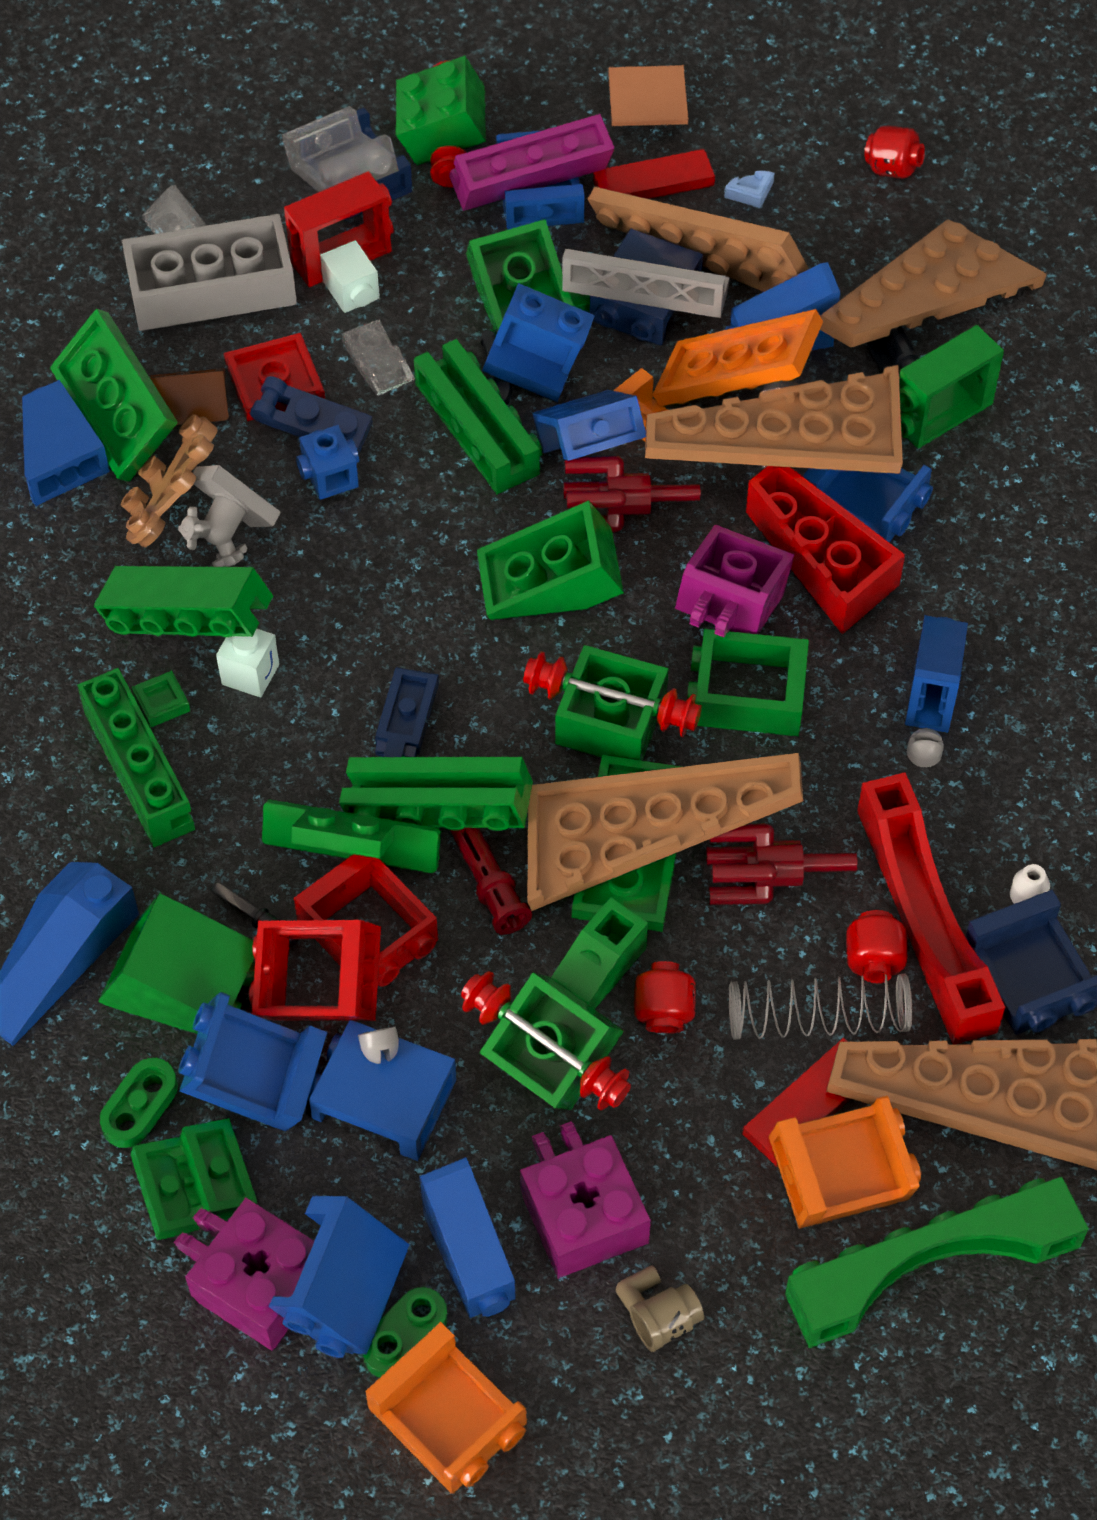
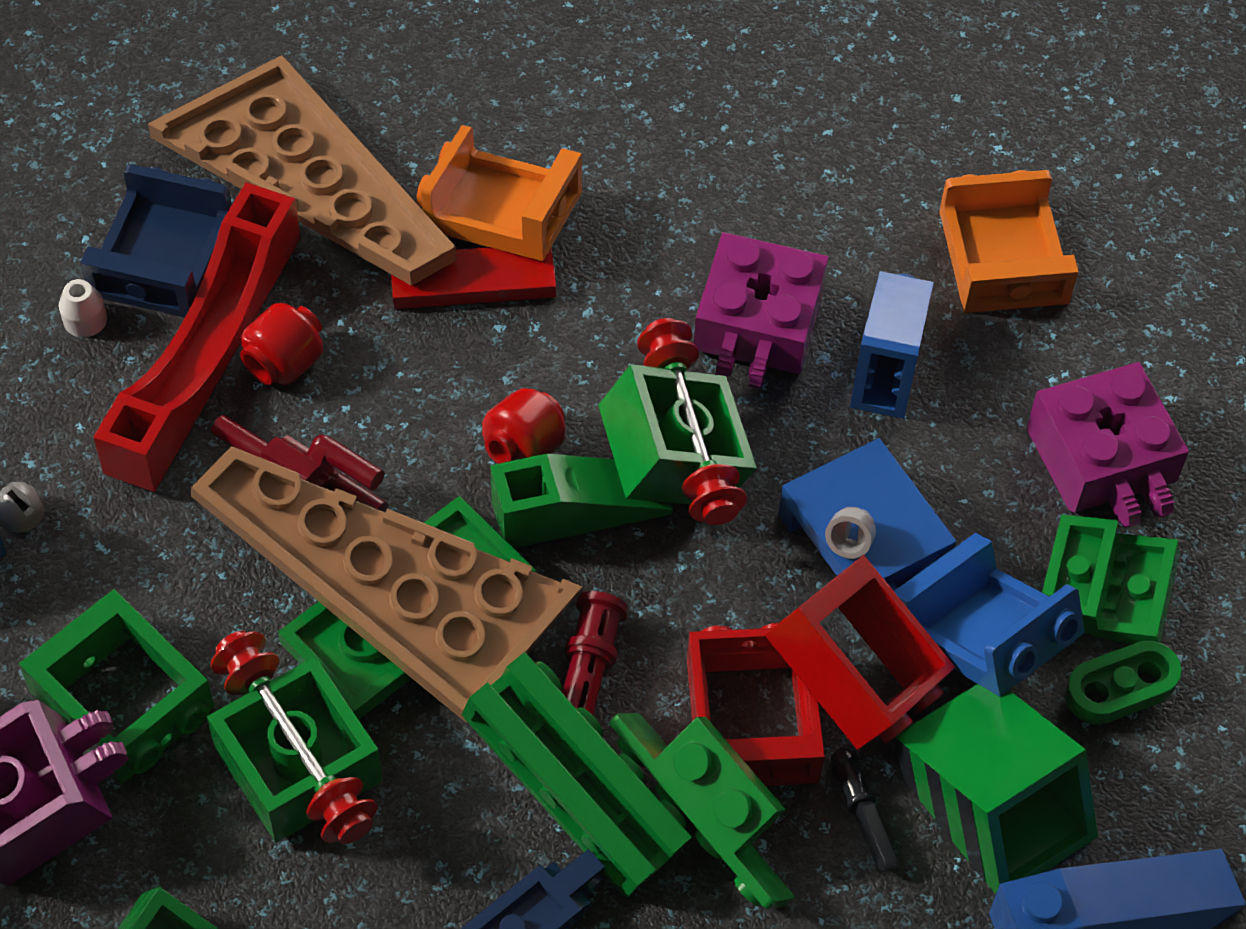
camera: 145 degrees left, 0 degrees up
(343, 1278) = (998, 383): blue panel -> none
(404, 1328) = (1000, 329): green plate -> none
(664, 1314) = (765, 192): dark tan piece -> none
(737, 1017) = (458, 369): light grey piece -> none
(1026, 1225) = (592, 114): green arch -> none

